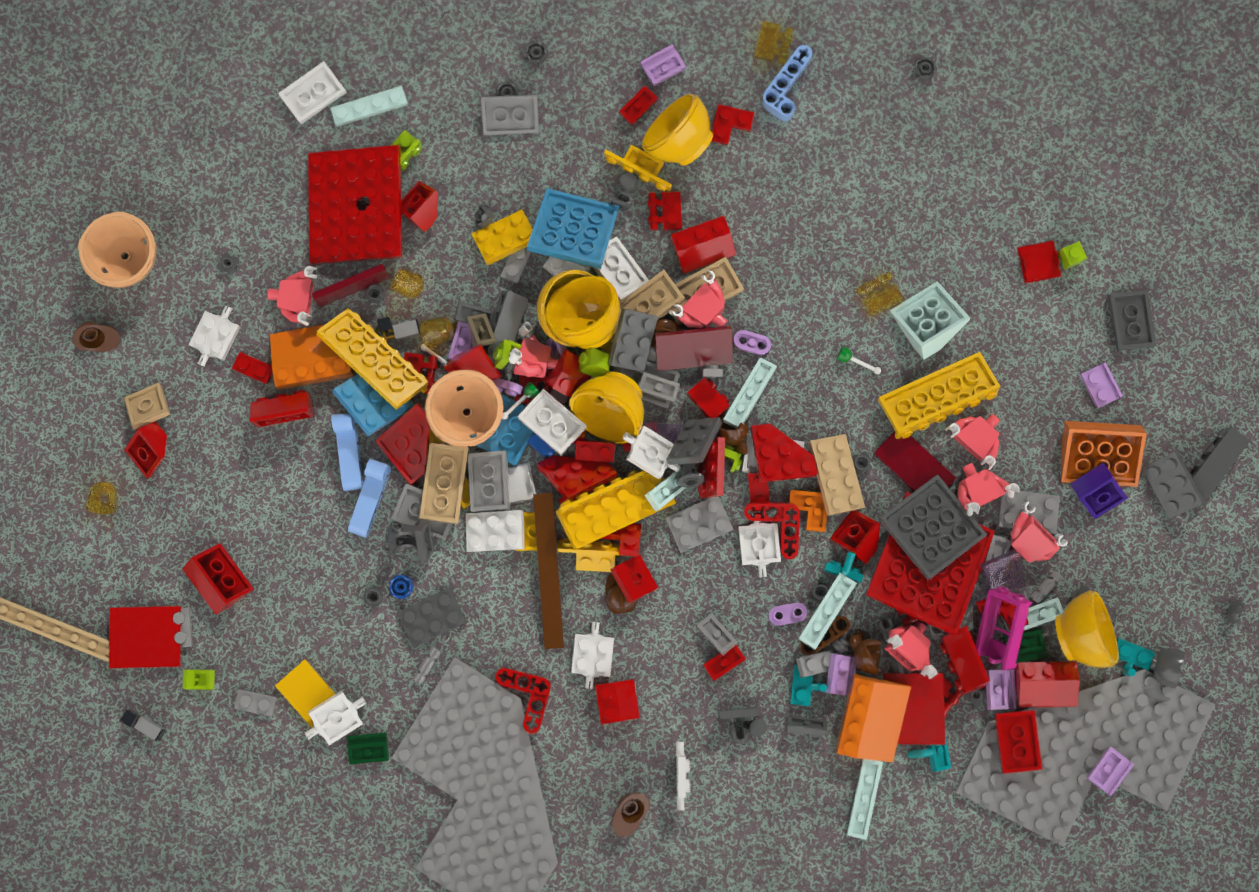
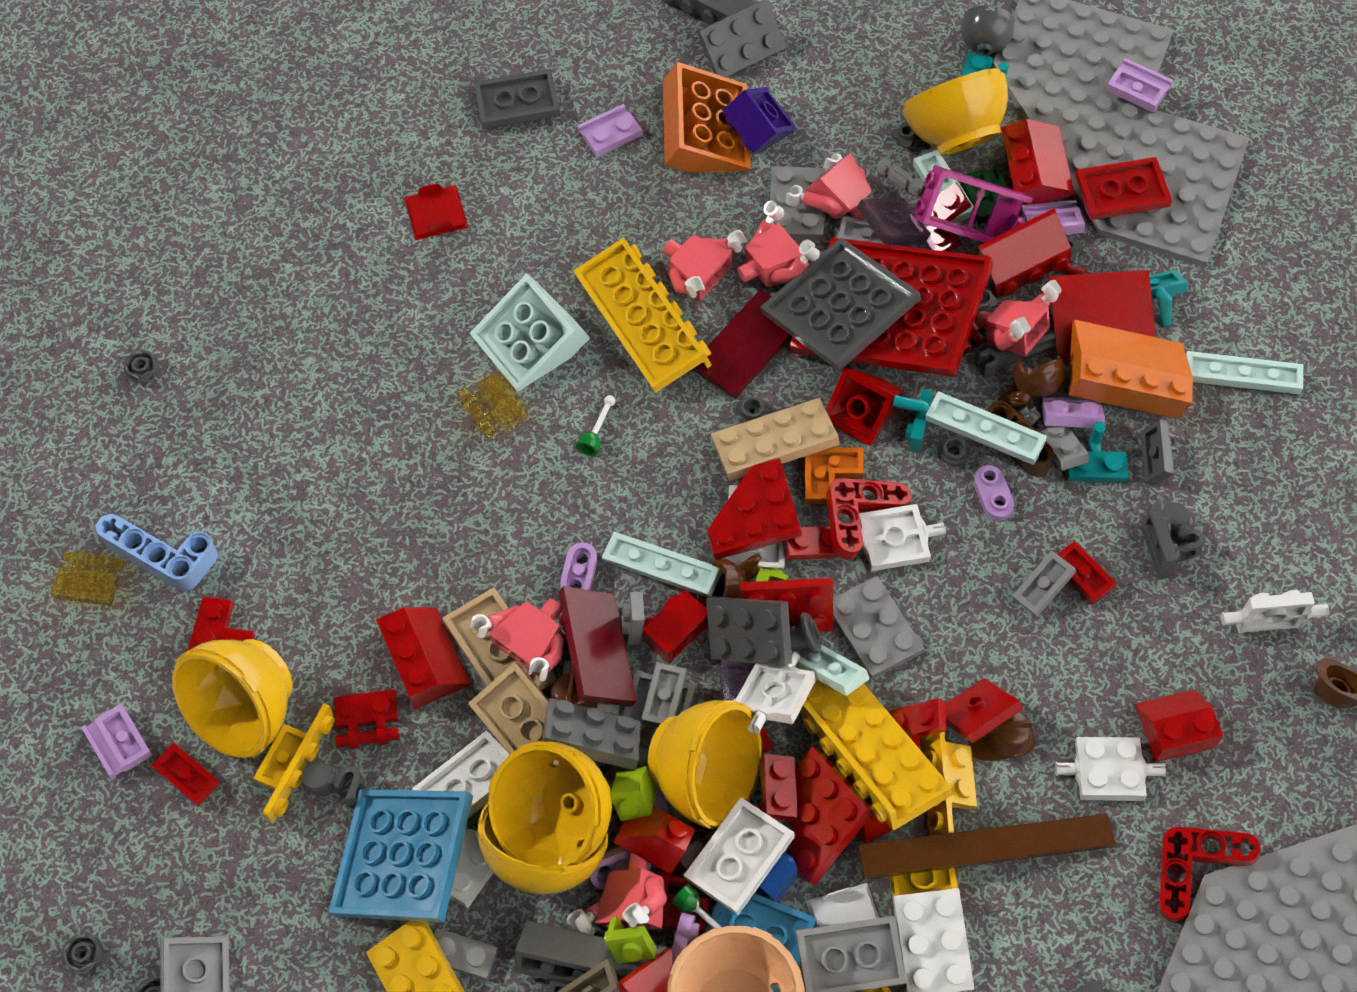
camera: 90 degrees left, 20 degrees down
(1072, 255) = (427, 167): lime brick -> none

